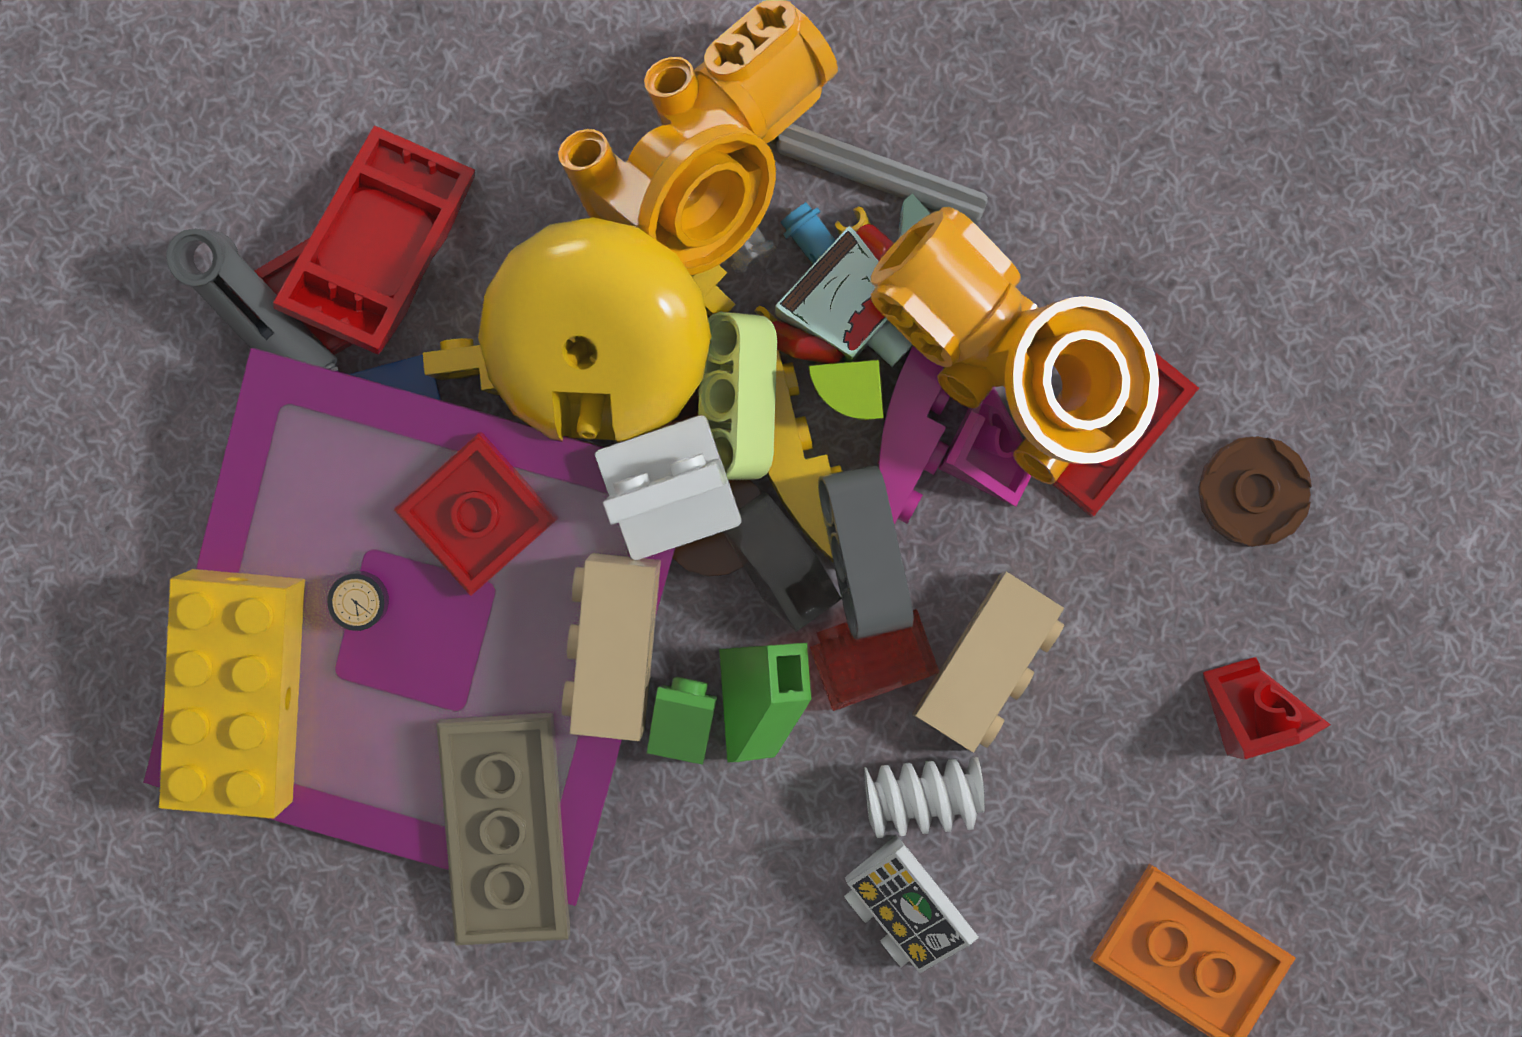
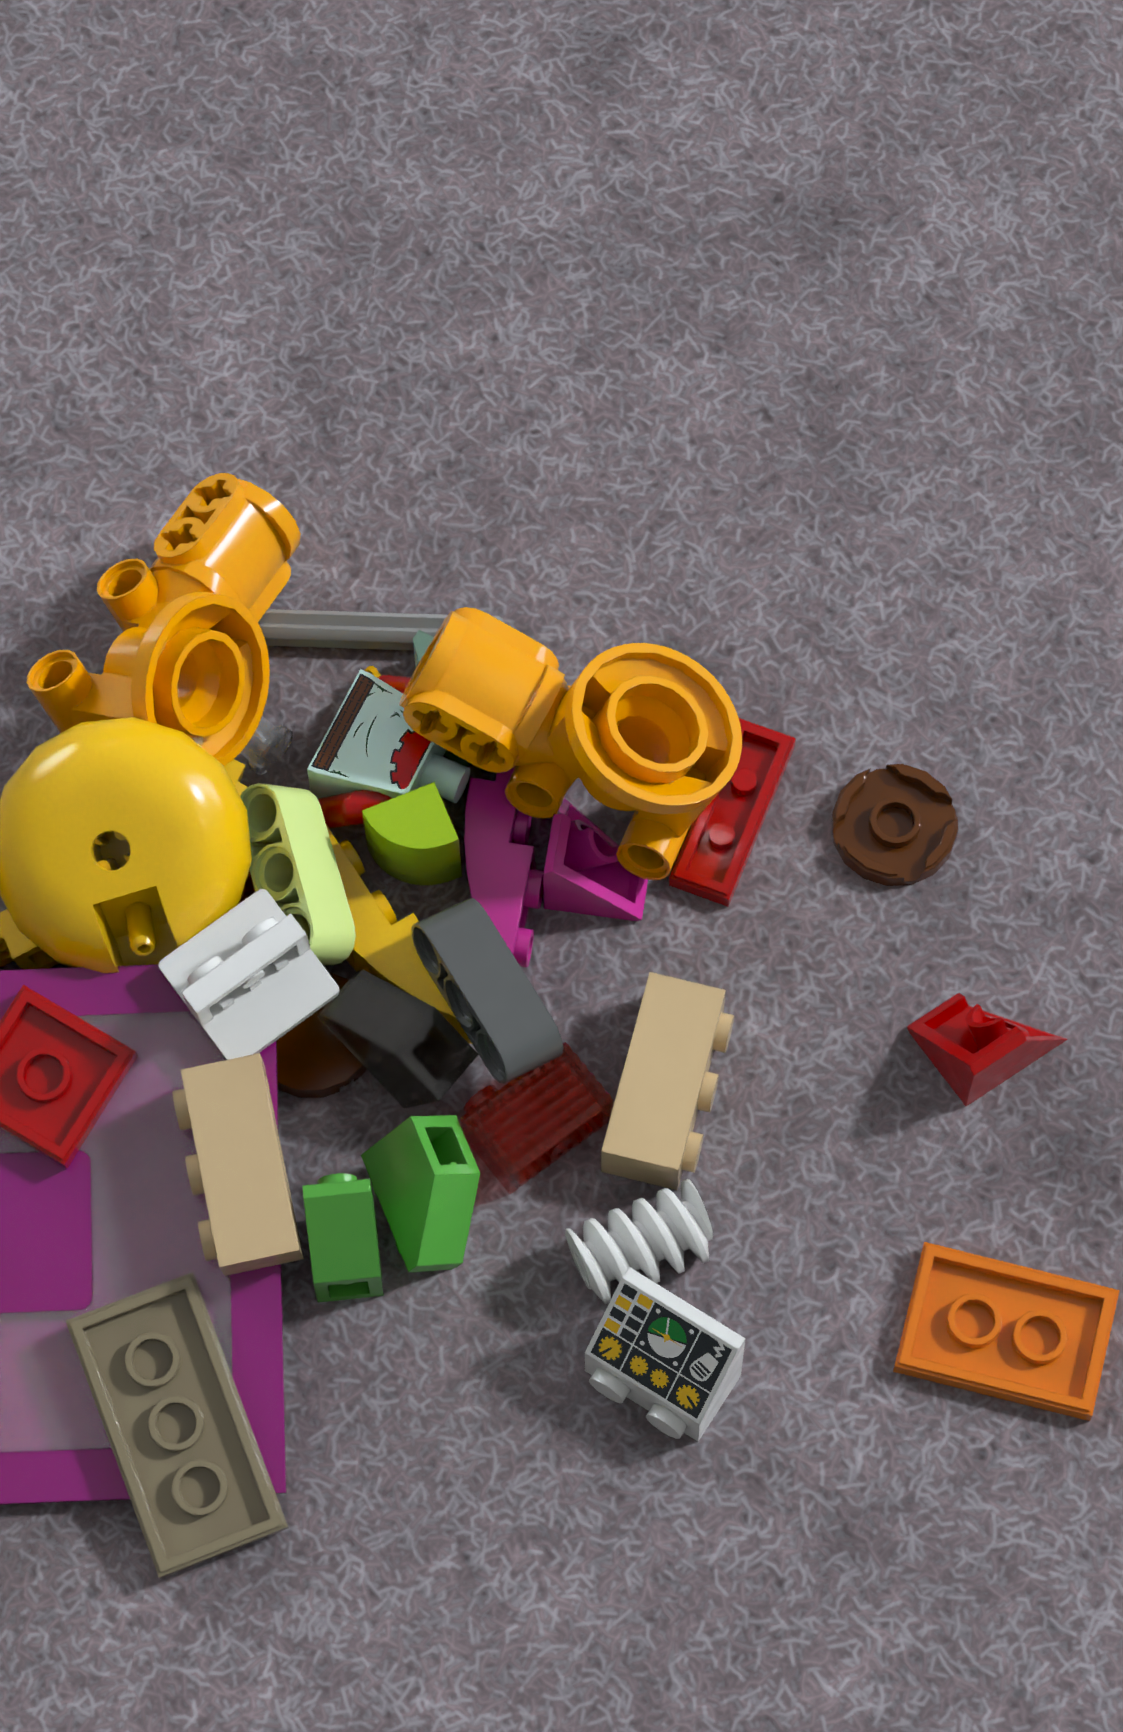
camera: 15 degrees left, 20 degrees down
(808, 231) = (314, 704): dark azure pin -> none

